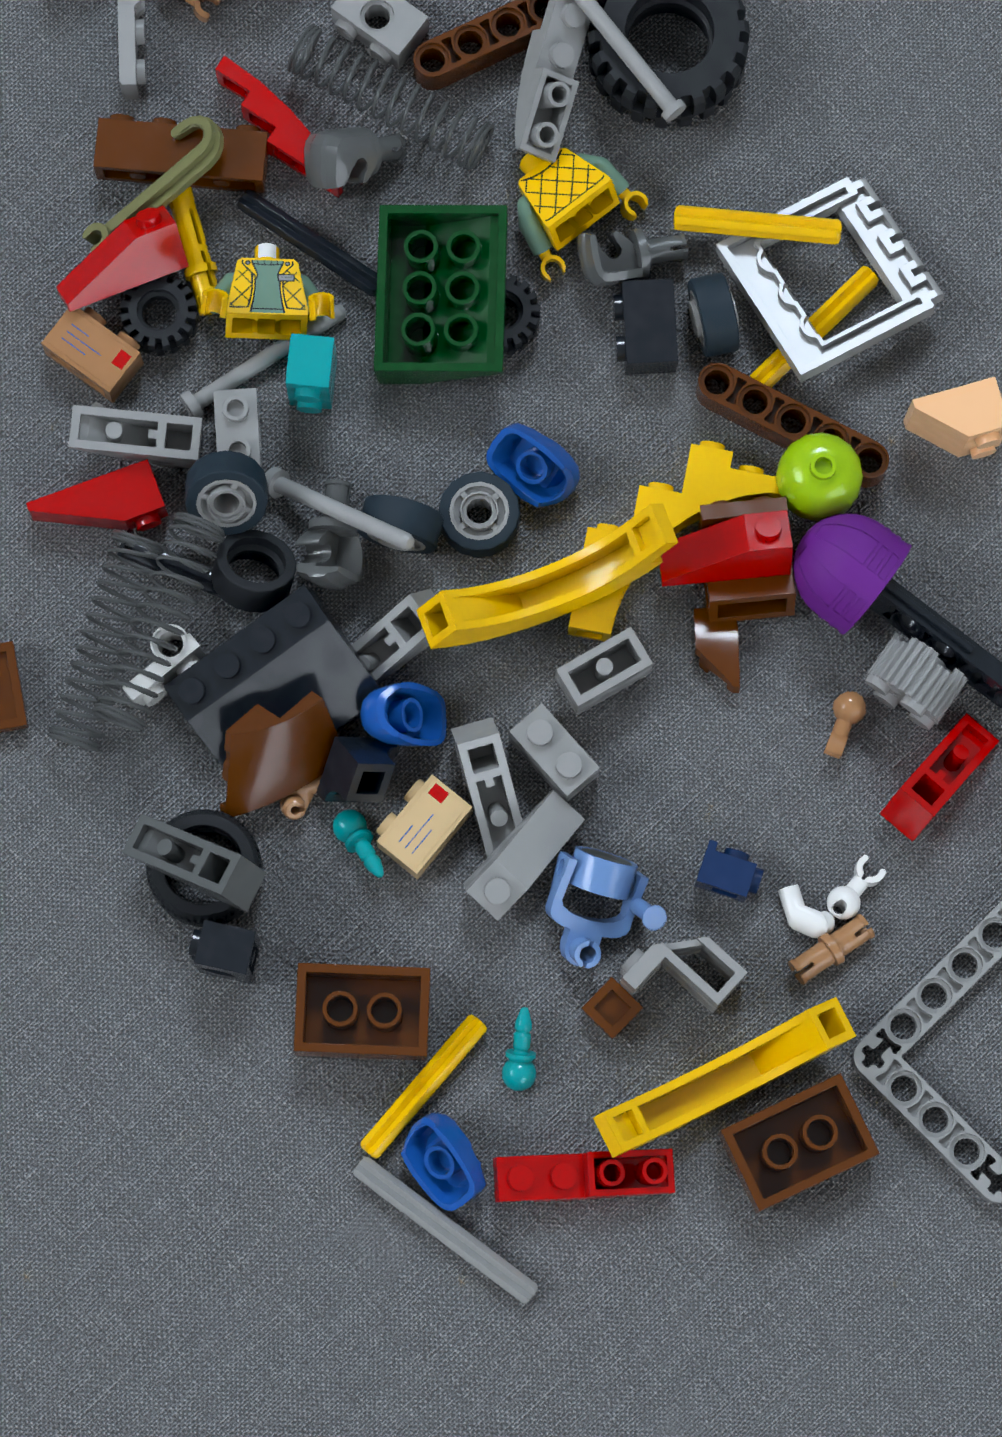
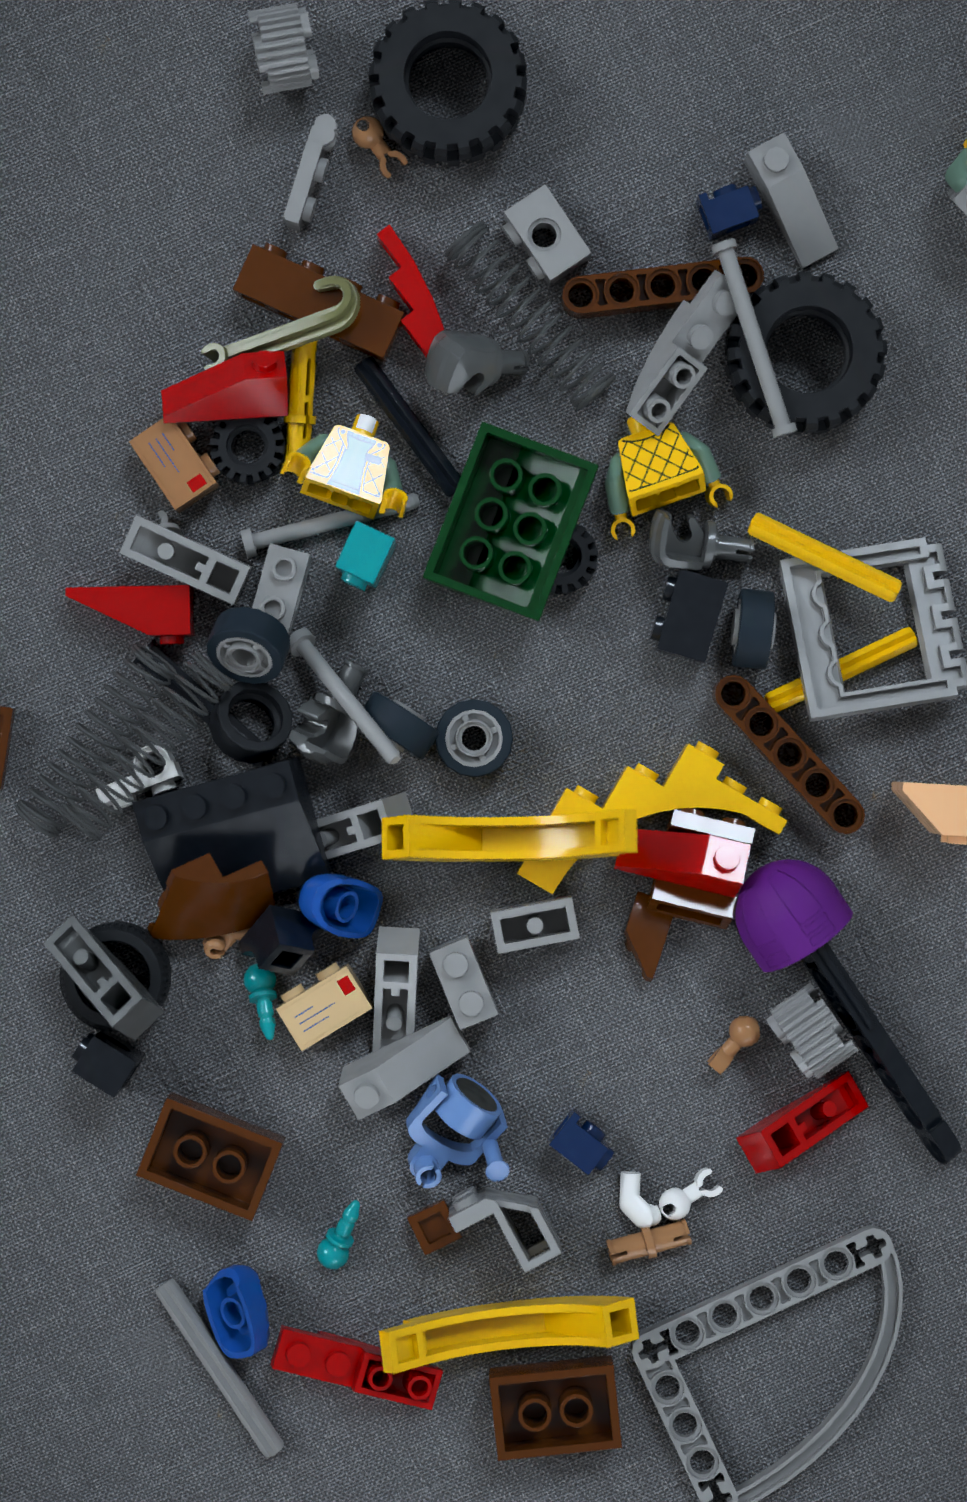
camera: 20 degrees right, 10 degrees up
(423, 1086) = (244, 1235): yellow axle -> none
(533, 465) = (538, 711): blue piece -> none
(819, 476) = (793, 817): lime cylinder -> none

